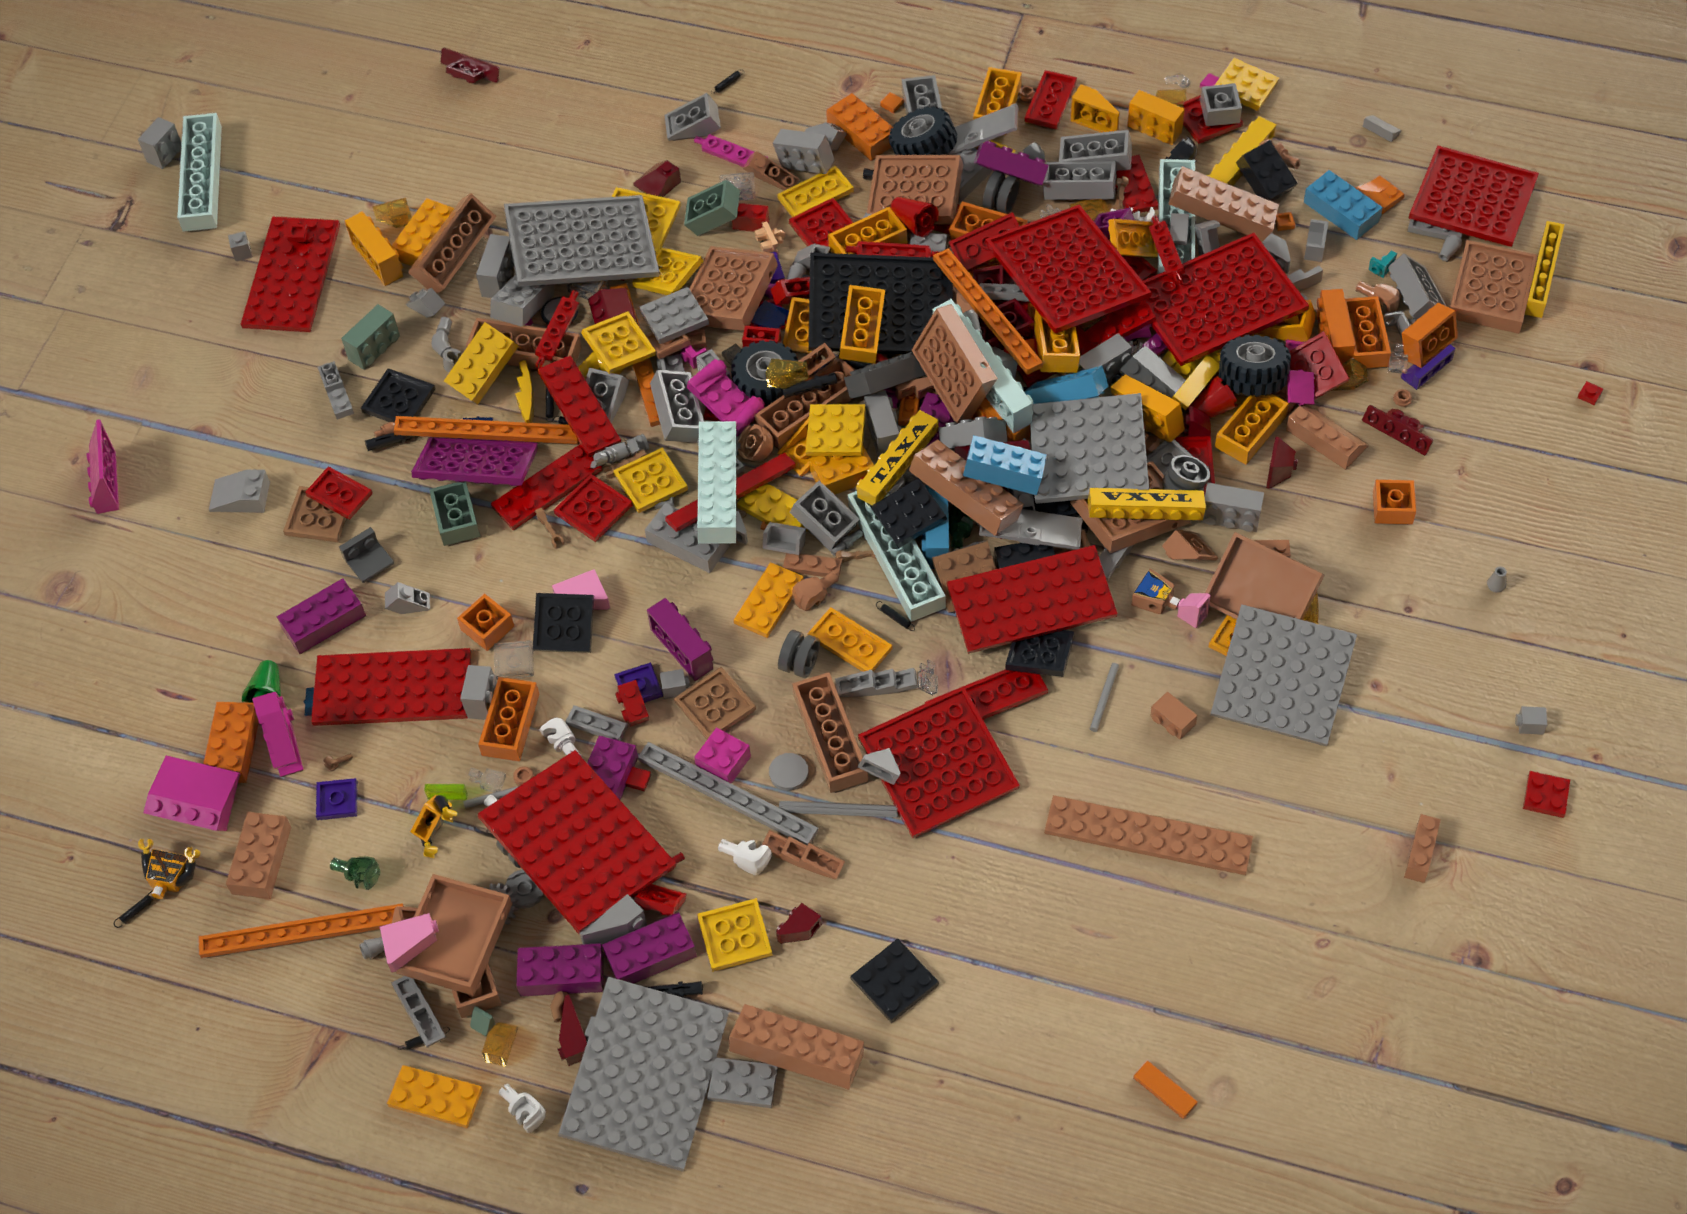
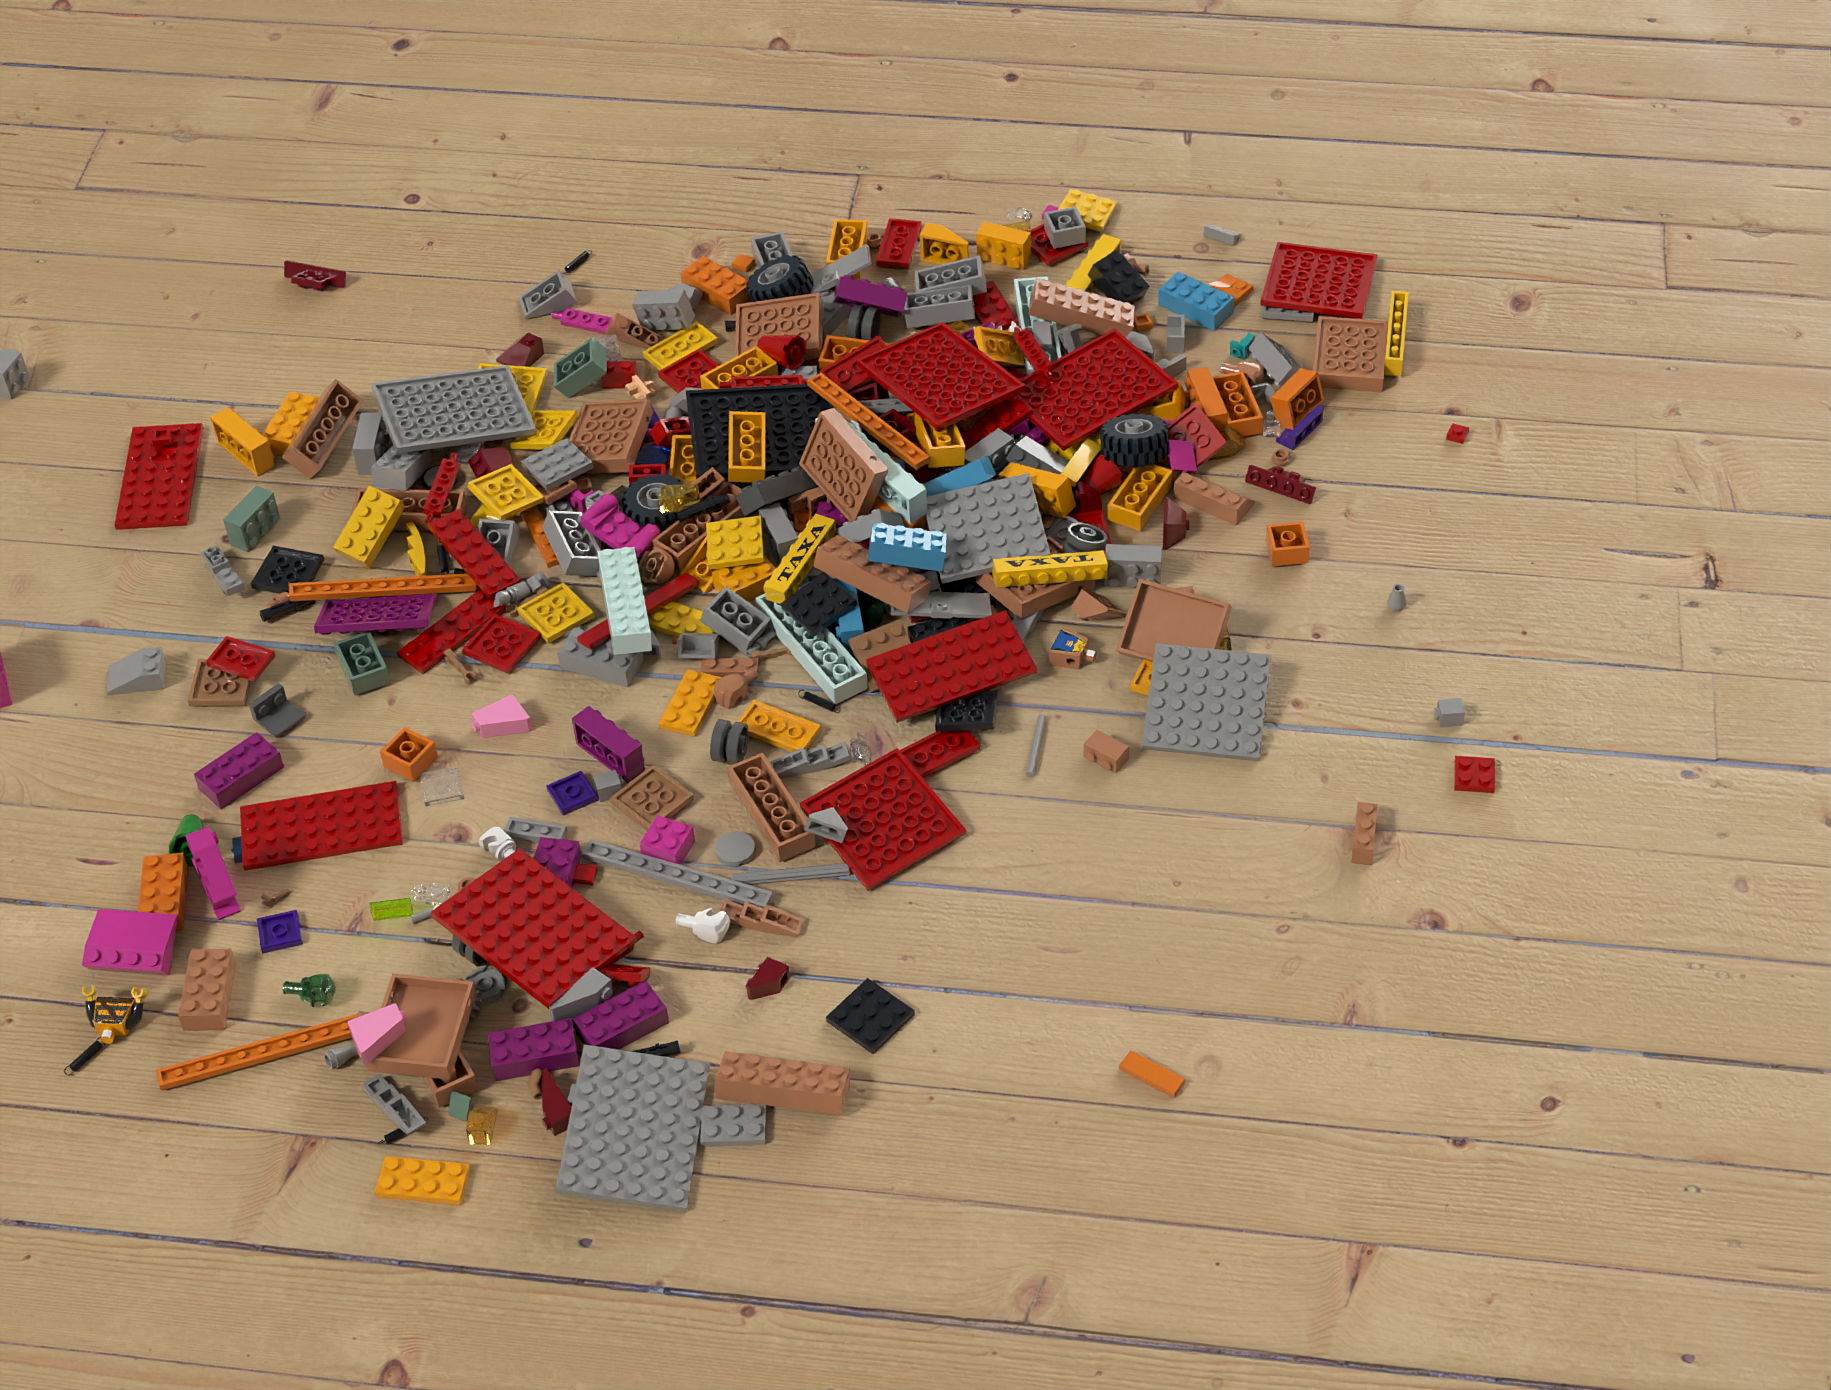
camera: 10 degrees left, 10 degrees down
(199, 172) = (52, 395): light aqua brick -> none
(240, 246) = (104, 456): light grey brick -> none
(393, 213) = (257, 410): clear yellow slope -> none
(406, 599) = (324, 745): light grey slope -> none
(425, 302) = (302, 483): light grey slope -> none
(430, 820) = (381, 933): torso -> none
(441, 345) = (325, 520): light grey piece -> none
(478, 691) = (413, 815): light grey brick -> none
(509, 719) = (446, 836): orange brick -> none
(524, 1106) = (516, 1175): white piece -> none
(563, 622) = (488, 744): black plate -> none
(632, 702) = (569, 805): red brick -> none
(734, 934) = (704, 996): yellow plate -> none
(1121, 183) = (980, 305): medium nougat piece -> none
(1149, 835) = (1099, 857): nougat plate -> none
(1184, 150) = (1036, 268): black cylinder -> none
(1194, 608) = (1111, 657): bright pink slope -> none
(1450, 246) = (1304, 325): light grey cone -> none

